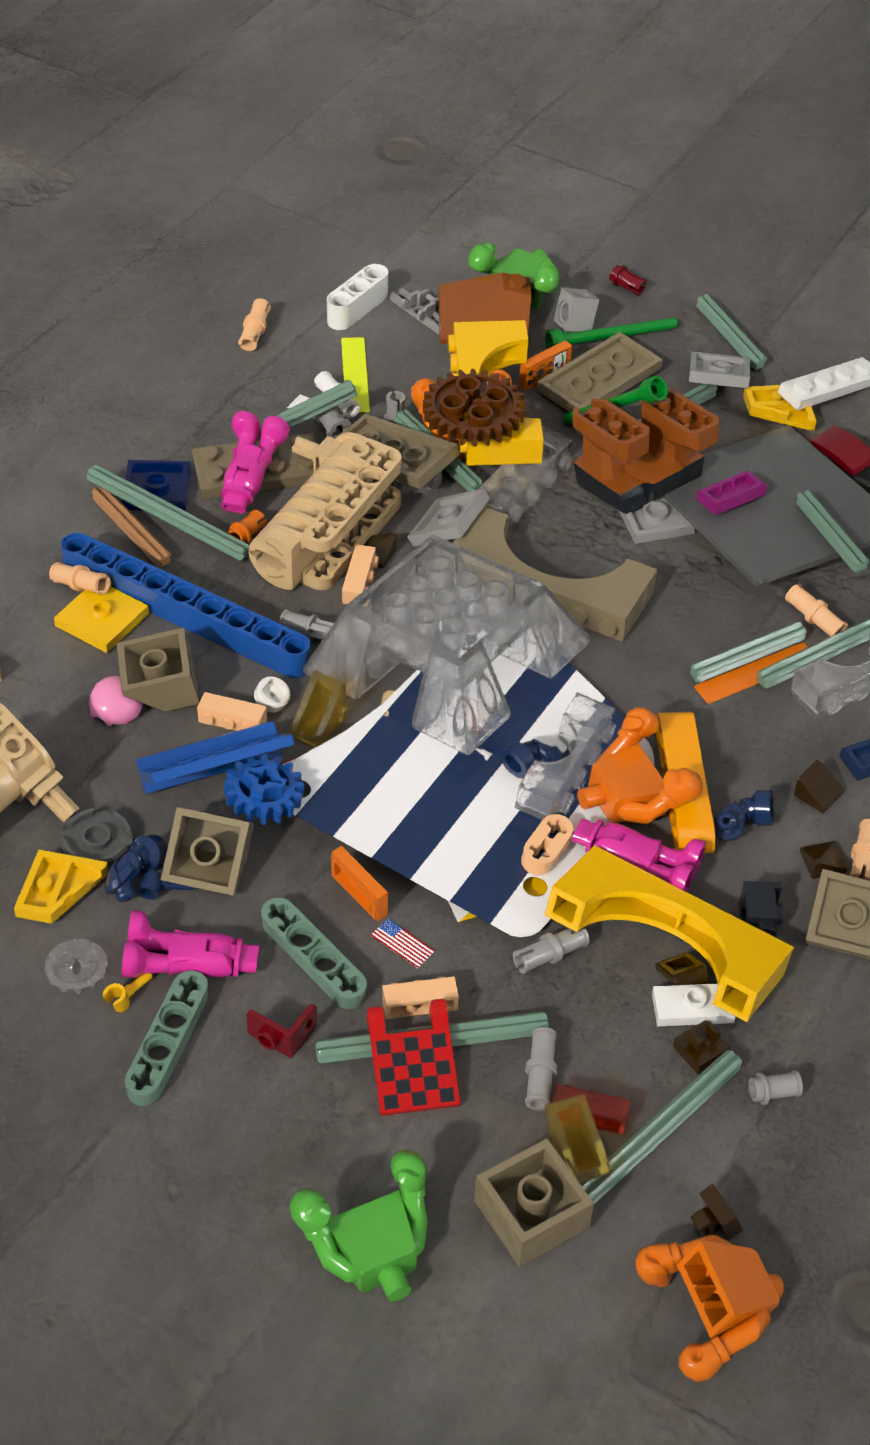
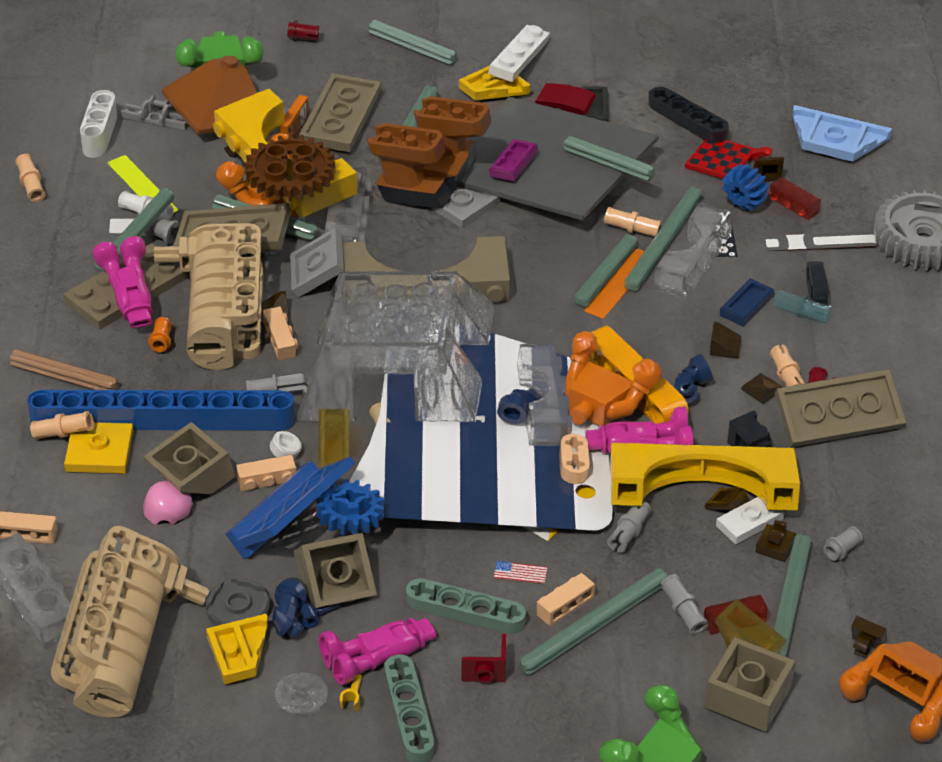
camera: 30 degrees left, 5 degrees down
(162, 478) = (56, 333): clear blue tile -> none
(168, 513) = (88, 348): sand green axle -> none
(359, 883) = (462, 544): orange tile -> none
(395, 405) = (205, 196): light grey pin -> none
(414, 1067) = (598, 642): red flag -> none
(556, 336) = (289, 95): green piece -> none
(576, 310) = (287, 69): light grey brick -> none
(651, 391) = (421, 102): green piece -> none
(719, 369) = (429, 74): light grey tile -> none

